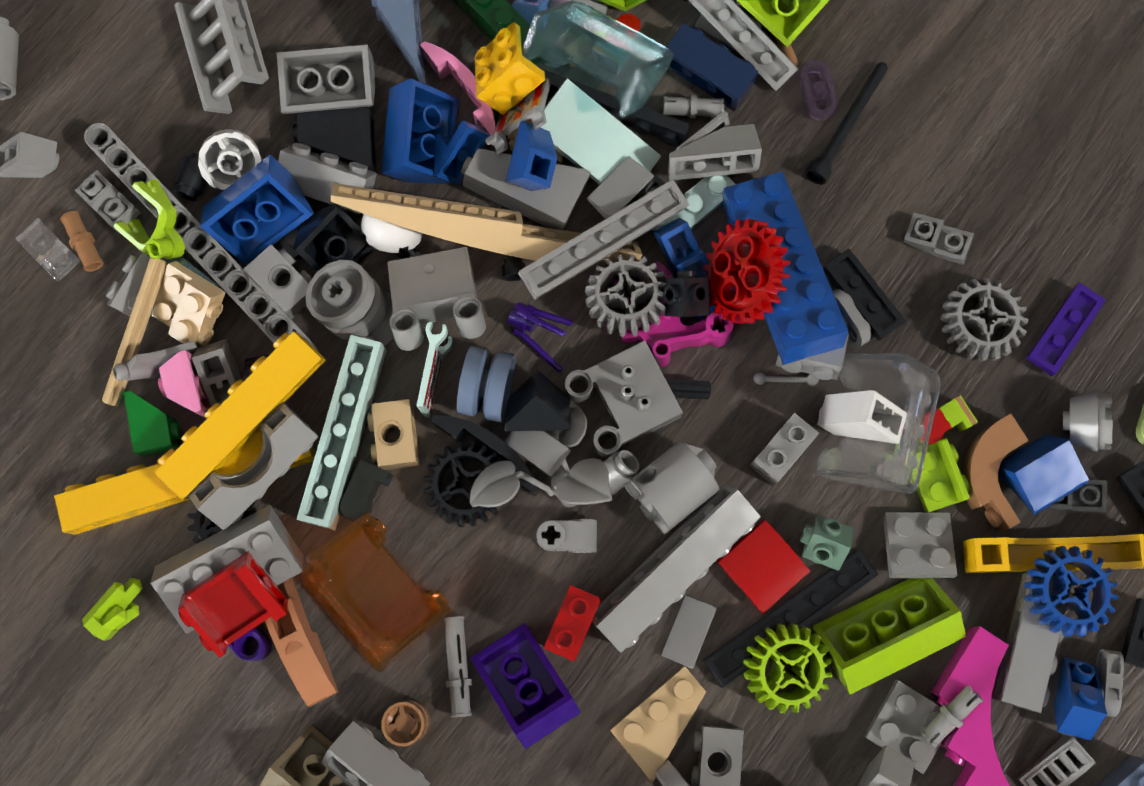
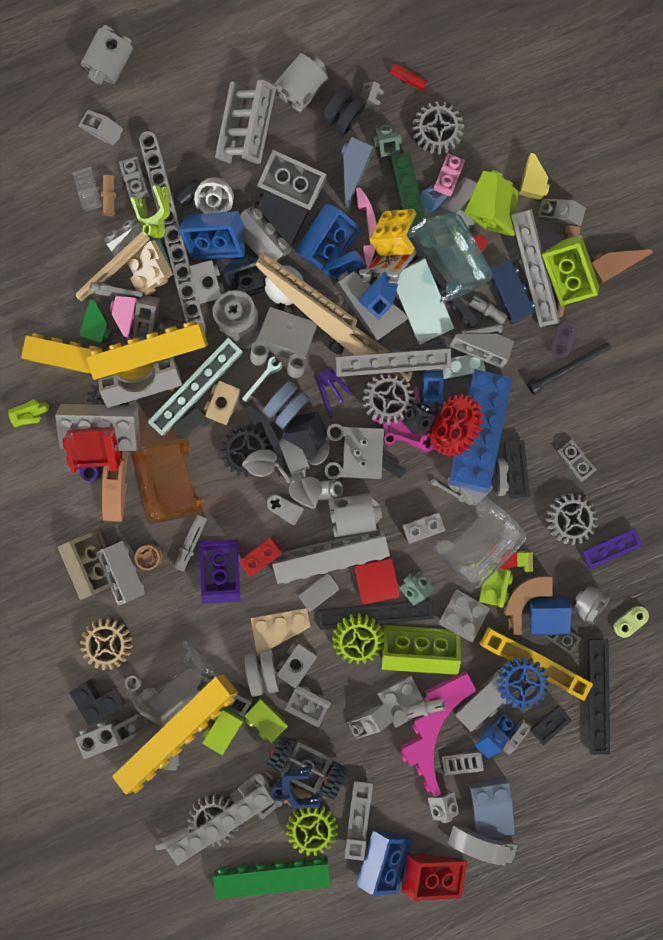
camera: 25 degrees right, 10 degrees up
(619, 187) = (419, 335): light grey slope -> none
(862, 416) = (472, 535): white slope -> none

